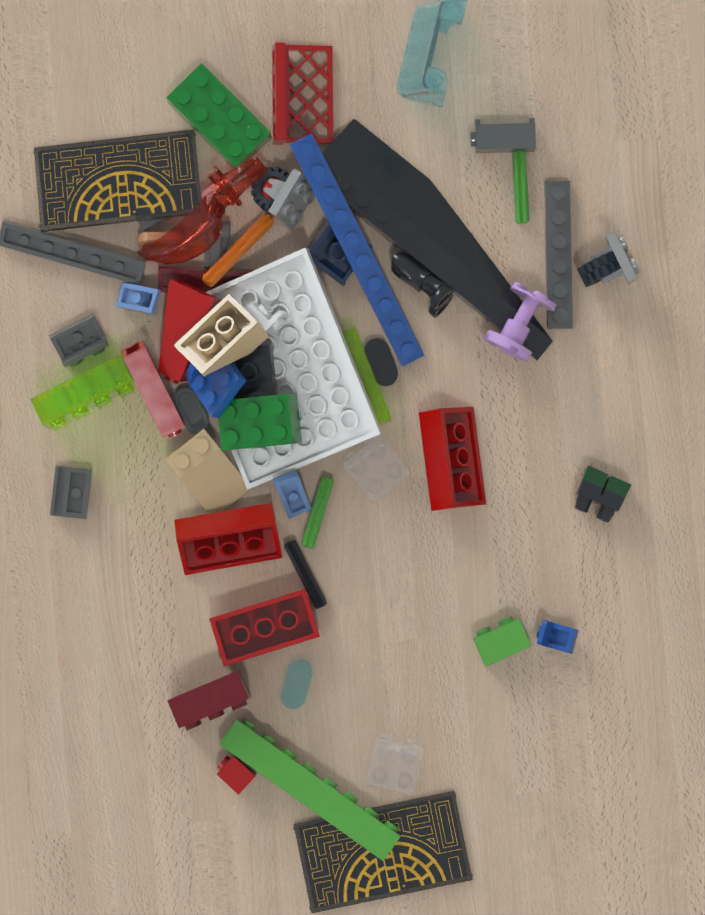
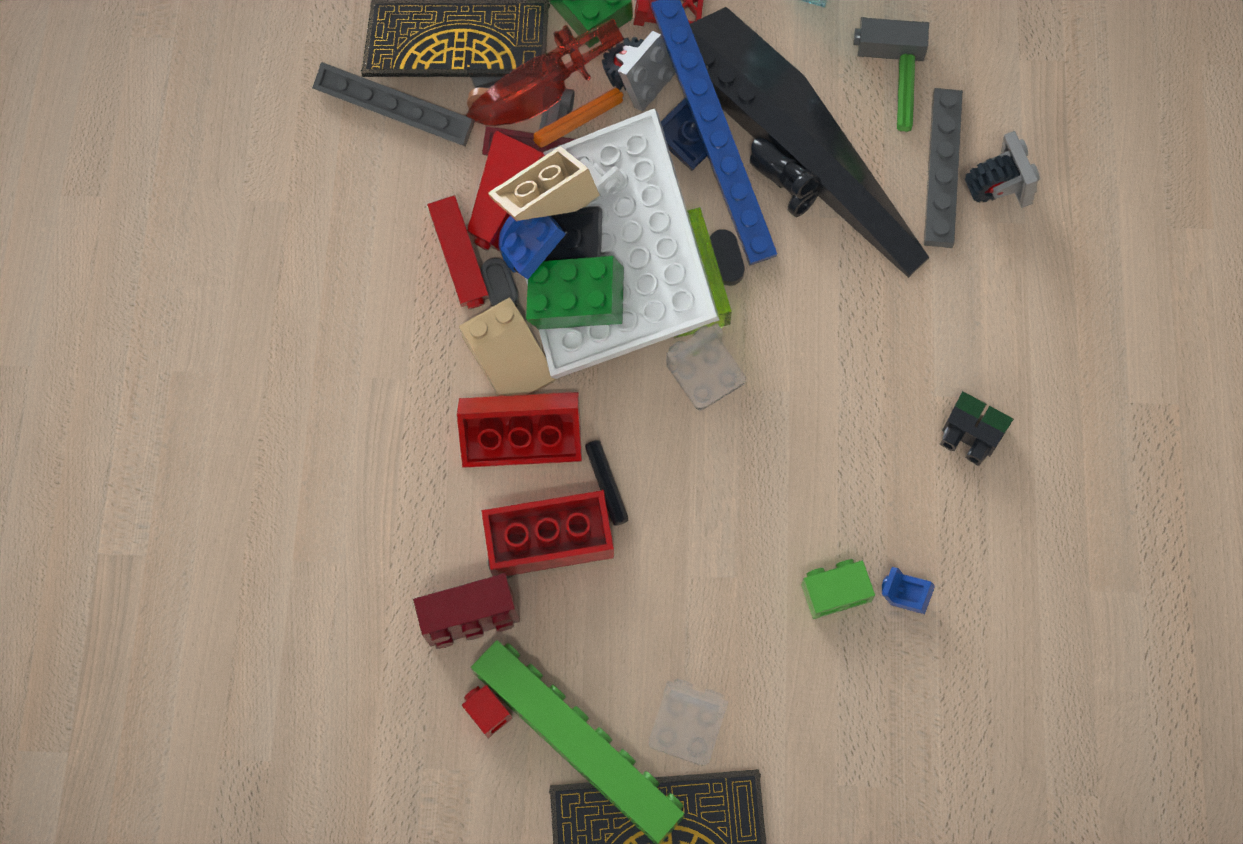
camera: 10 degrees right, 15 degrees down
(71, 492) = (344, 357): dark grey plate -> none
(79, 341) = (384, 193): dark grey bracket -> none
(83, 393) = (378, 245): clear neon green brick -> none
(138, 298) = (462, 157): medium blue slope -> none
(292, 493) = (603, 385): medium blue slope -> none
(296, 684) = (578, 611): clear light blue tile -> none
(317, 512) = (630, 413): bright green axle -> none
(452, 458) = (798, 369): red slope -> none
(516, 329) = (883, 240): lavender piece -> none

